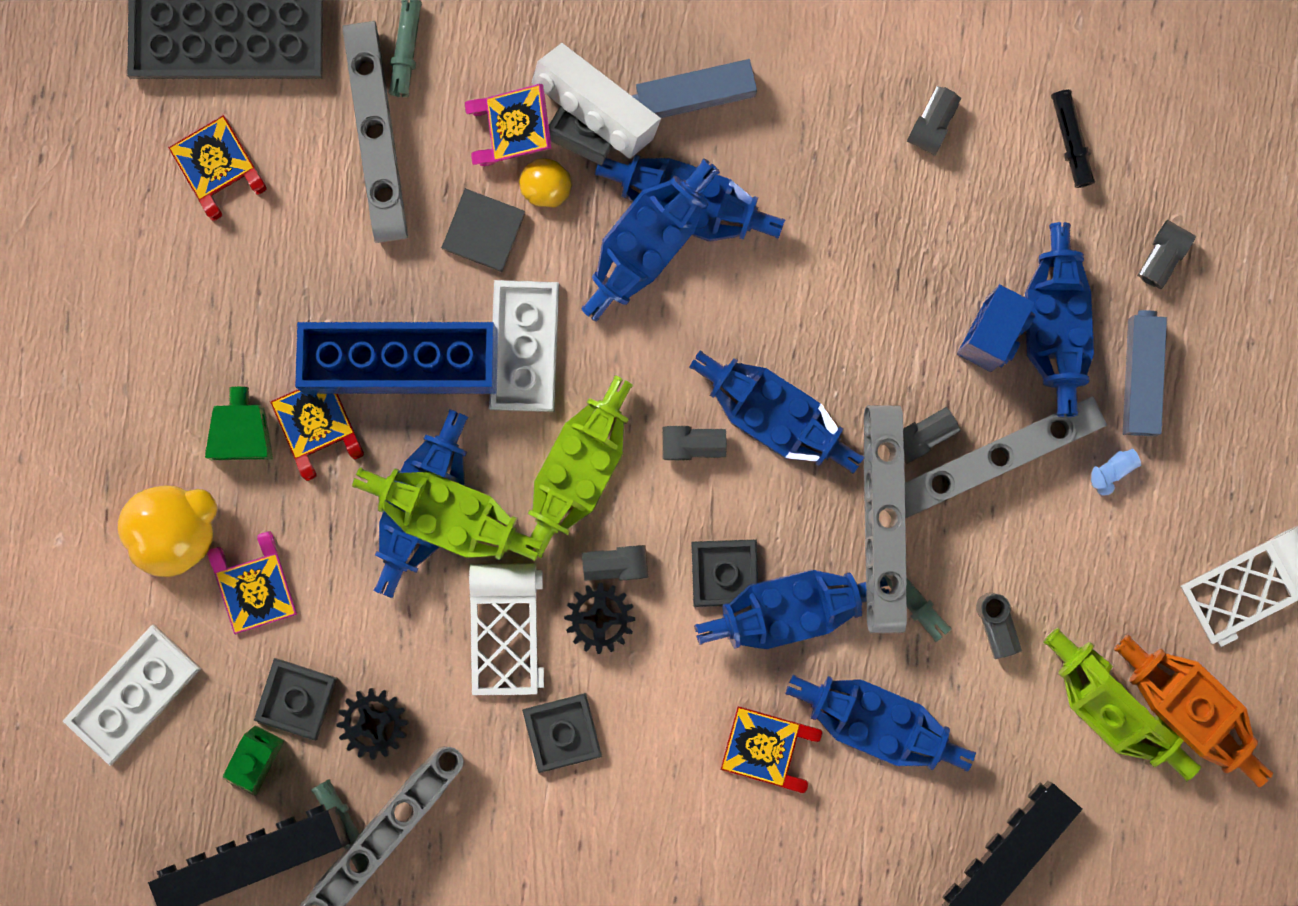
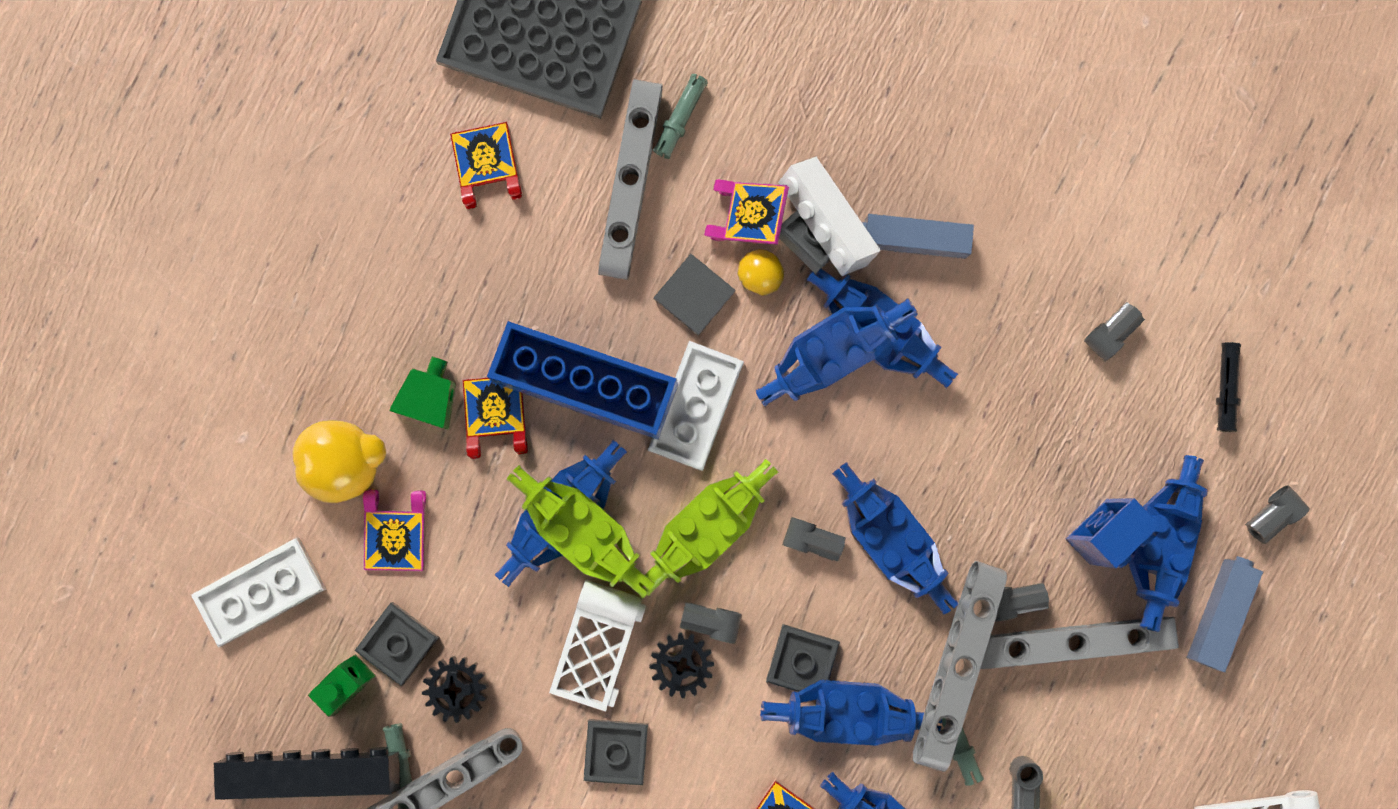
camera: 15 degrees right, 0 degrees up
(1115, 469) = (1172, 687): light blue arm -> none

